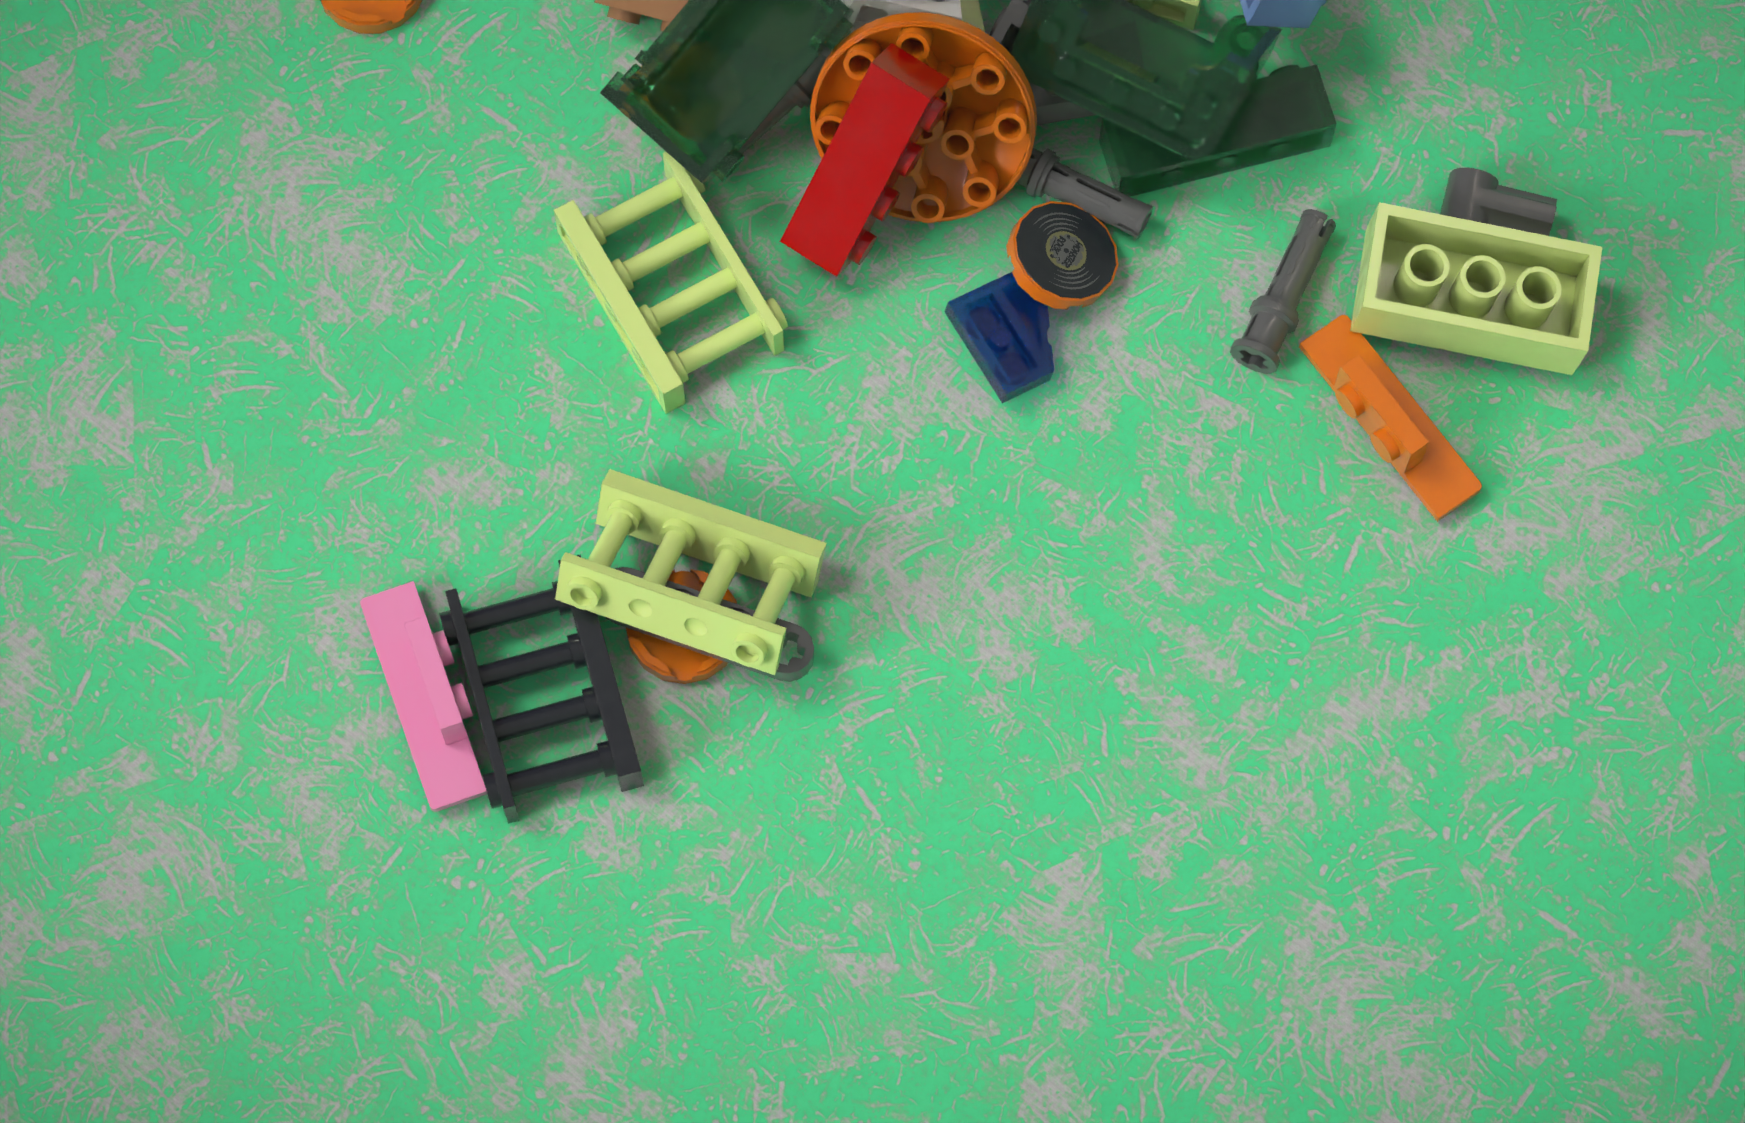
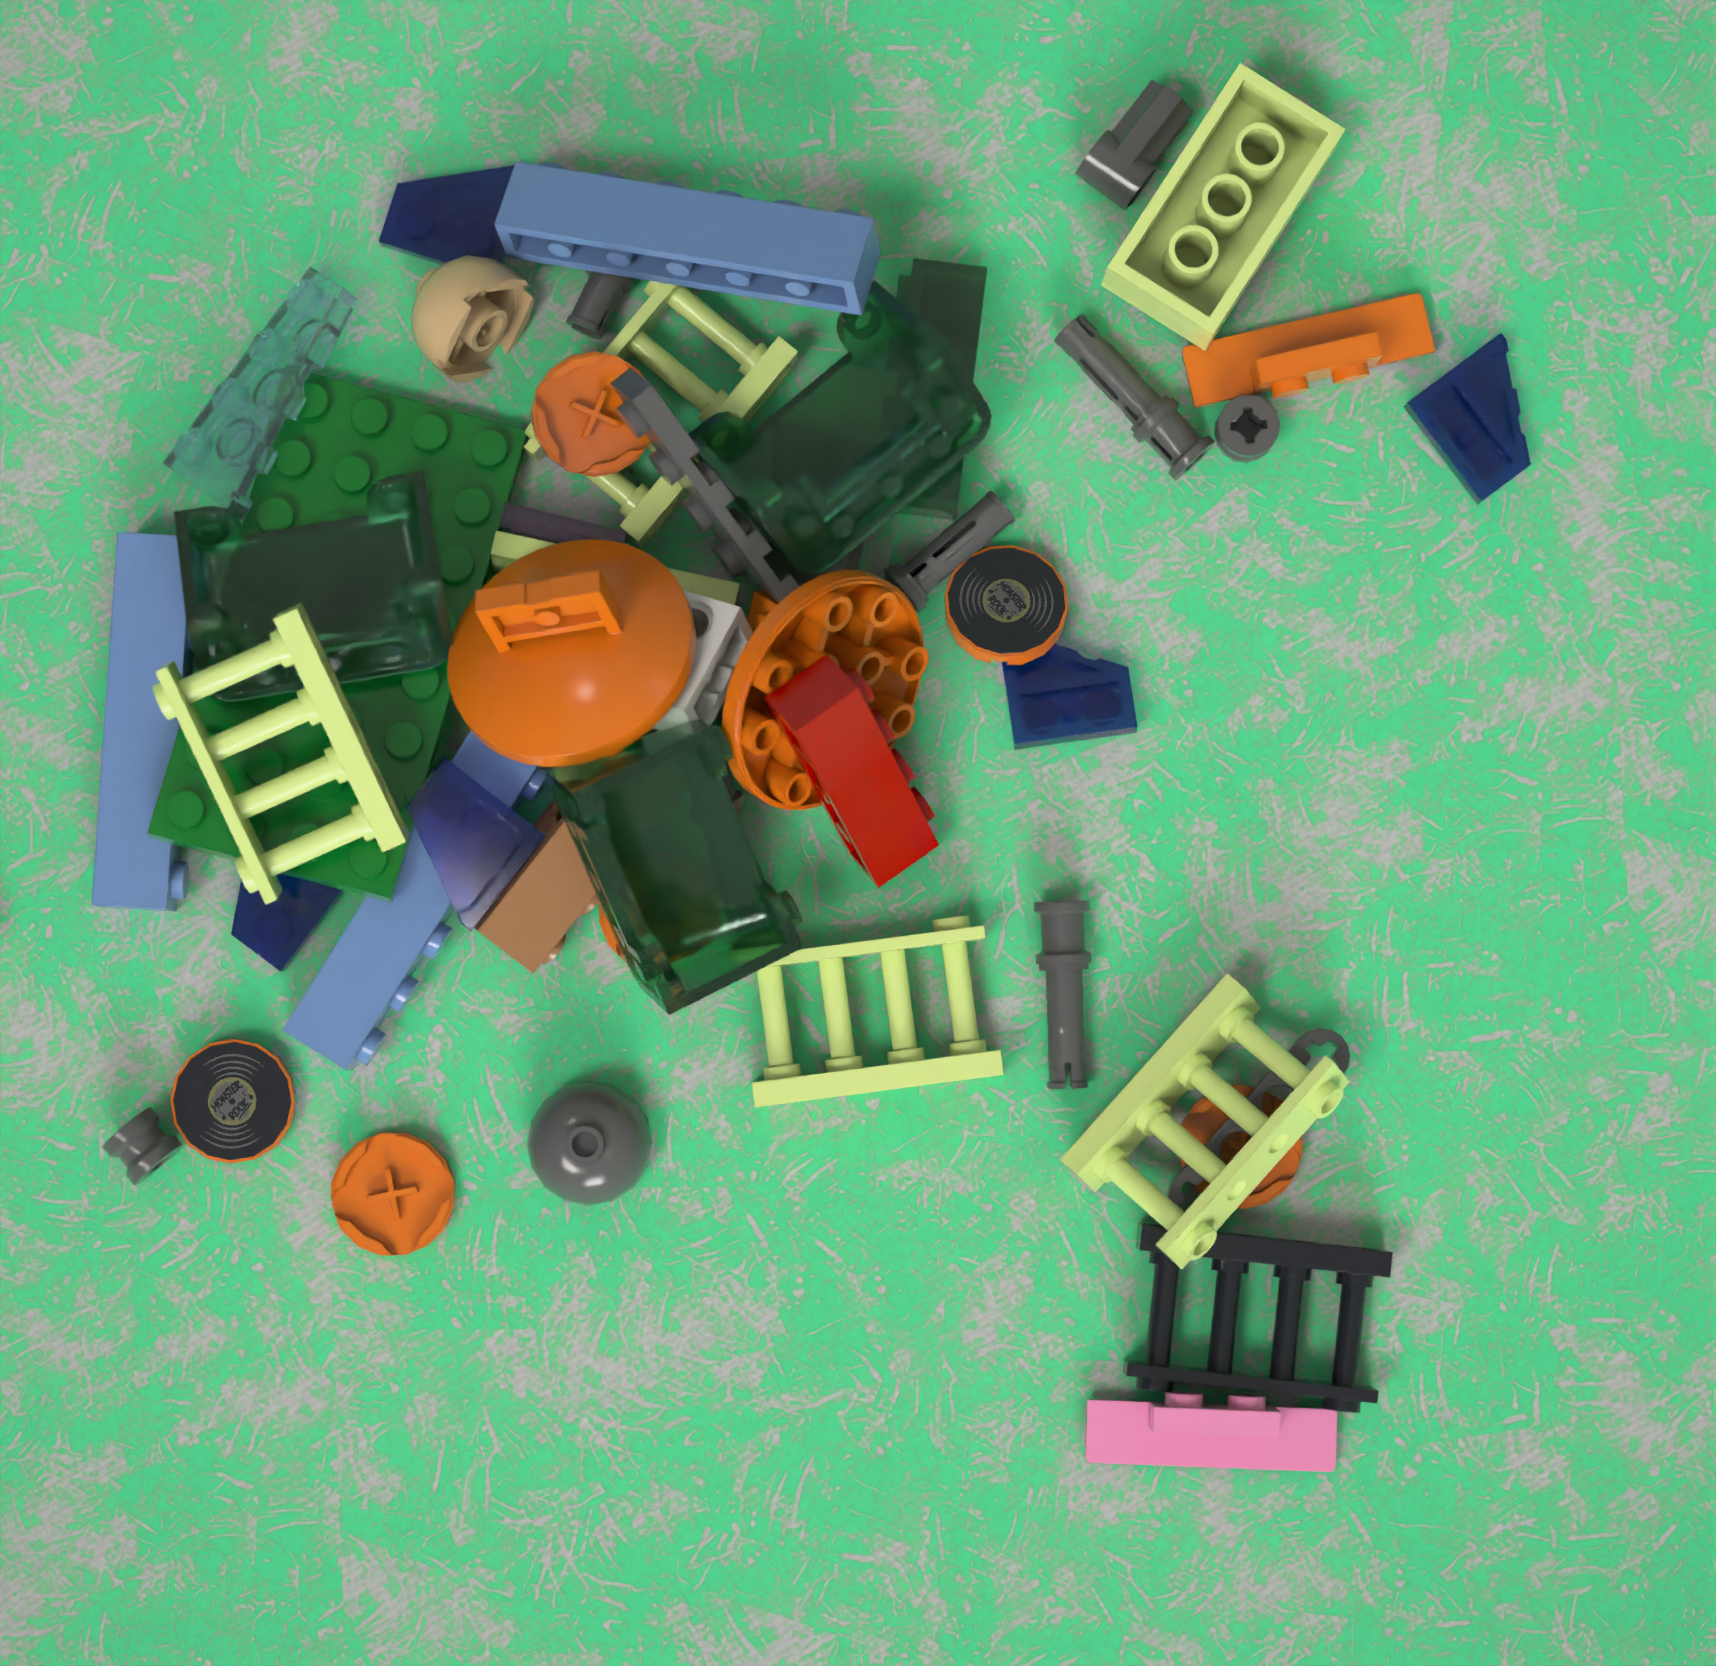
camera: 65 degrees left, 15 degrees up
(472, 108) = (589, 1143): none -> dark grey cylinder
(781, 418) = (1063, 960): none -> dark grey pin
(1294, 402) = (1236, 440): none -> dark grey wheel
(1396, 575) = (1475, 421): none -> clear blue wing

